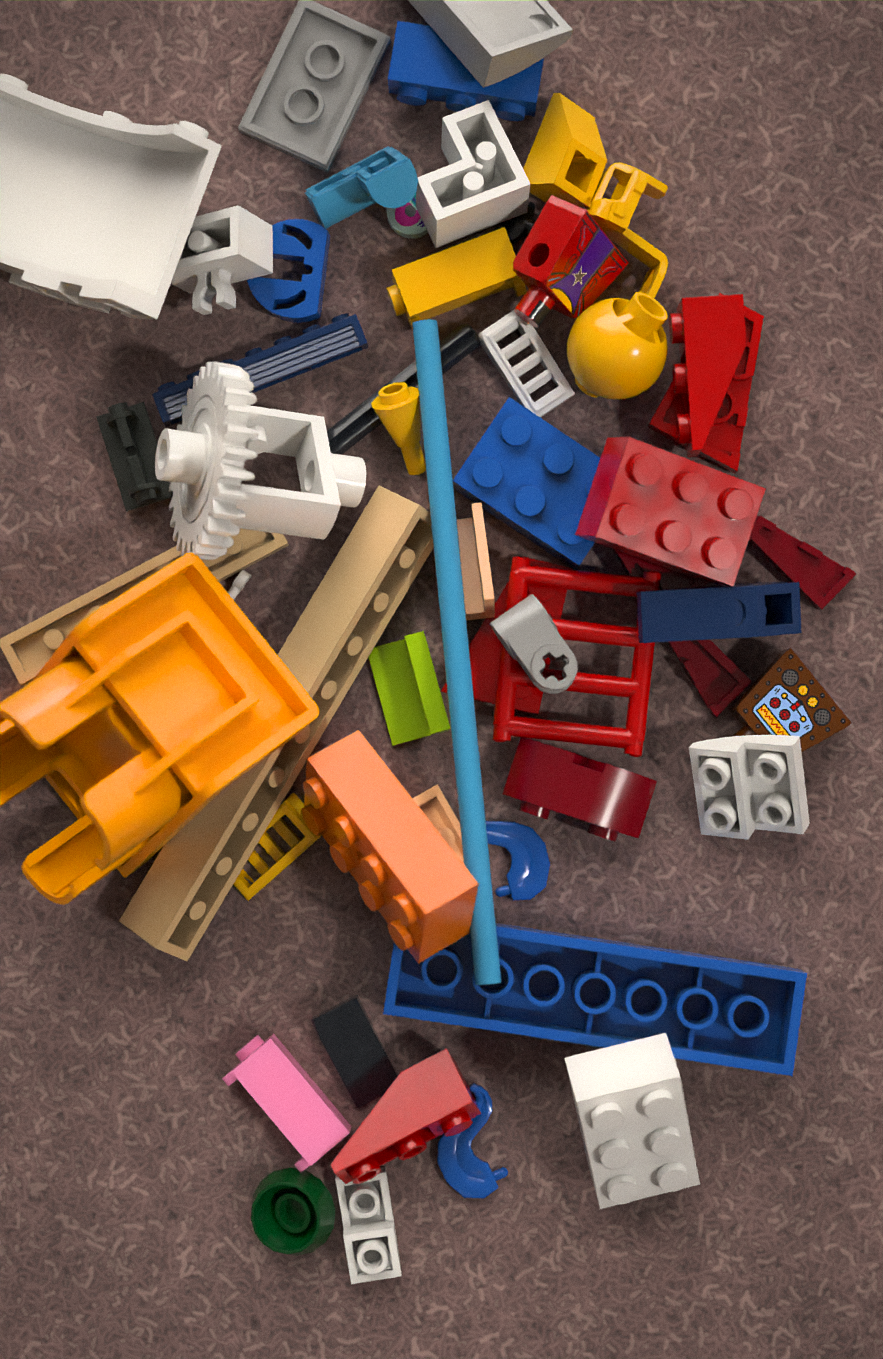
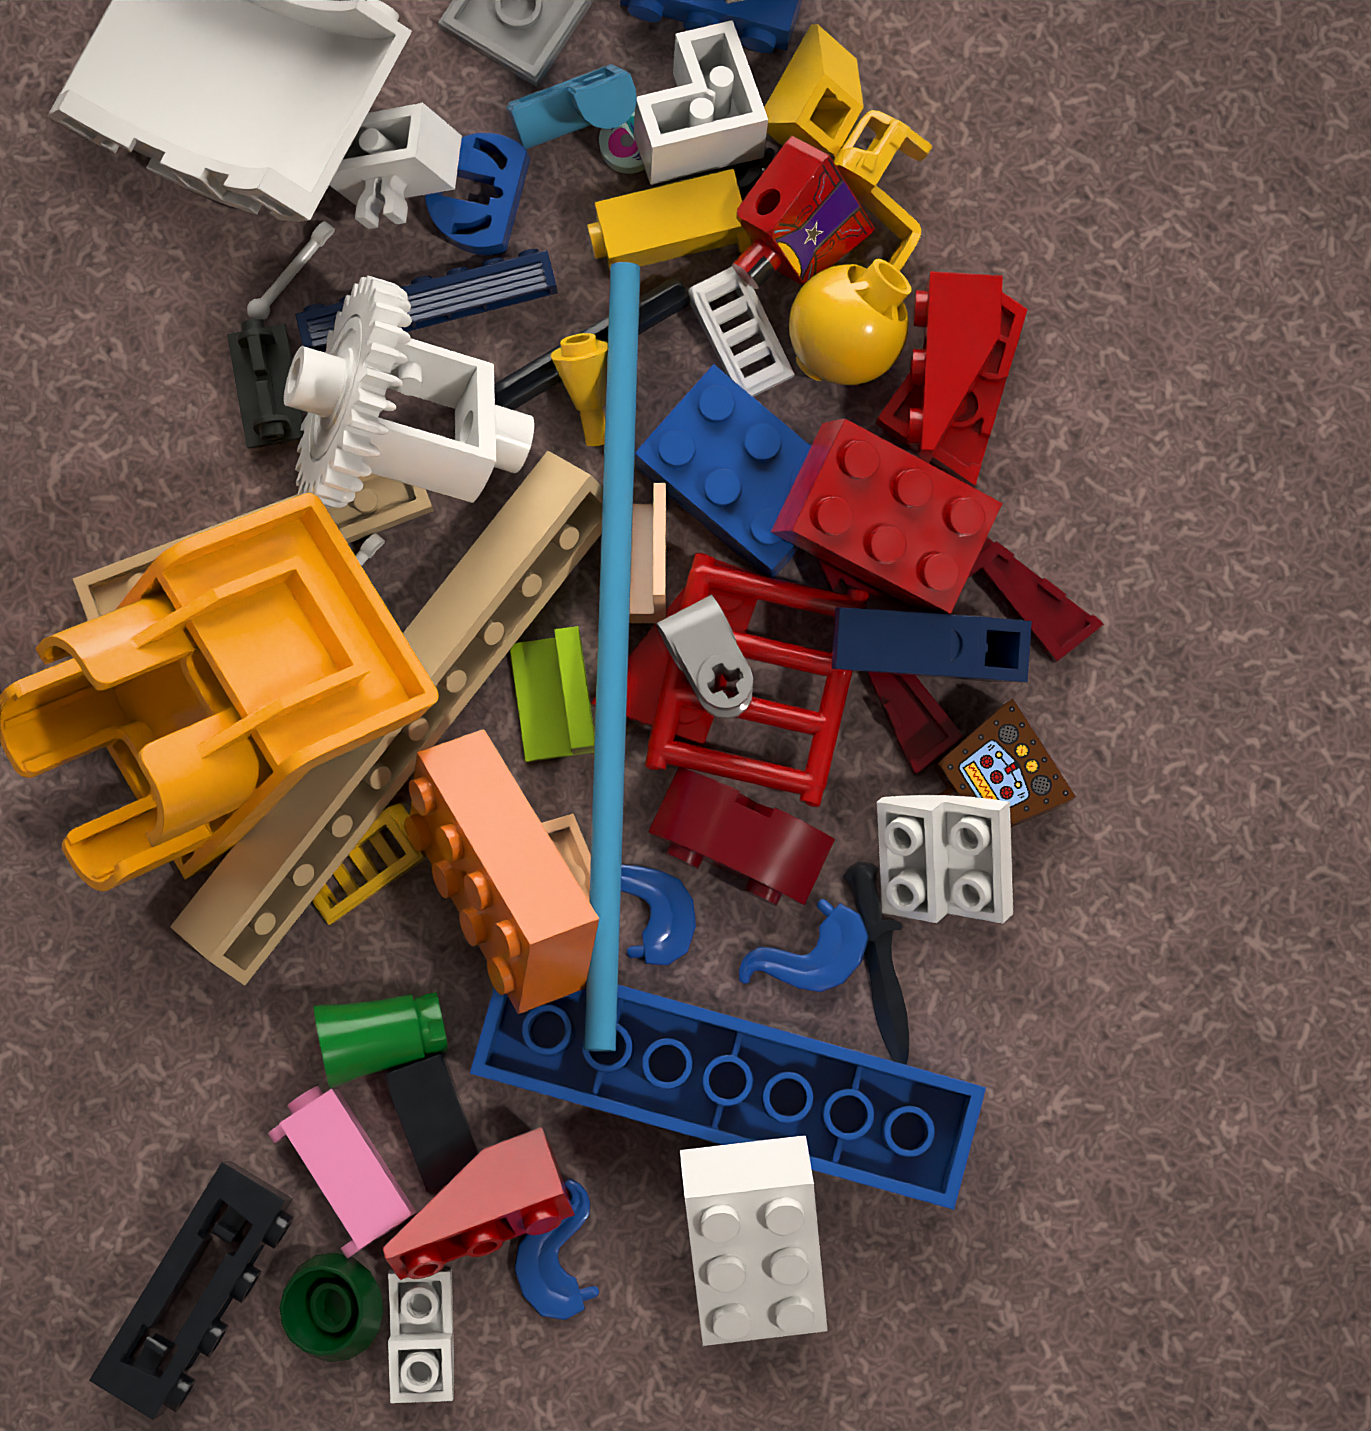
camera: 10 degrees right, 5 degrees down
(120, 391) = (260, 307): none -> white hinge
(145, 1291) = (140, 1380): none -> black brick
(302, 987) = (378, 1035): none -> green plant
(664, 882) = (828, 965): none -> blue piece
(698, 857) = (885, 987): none -> black sword

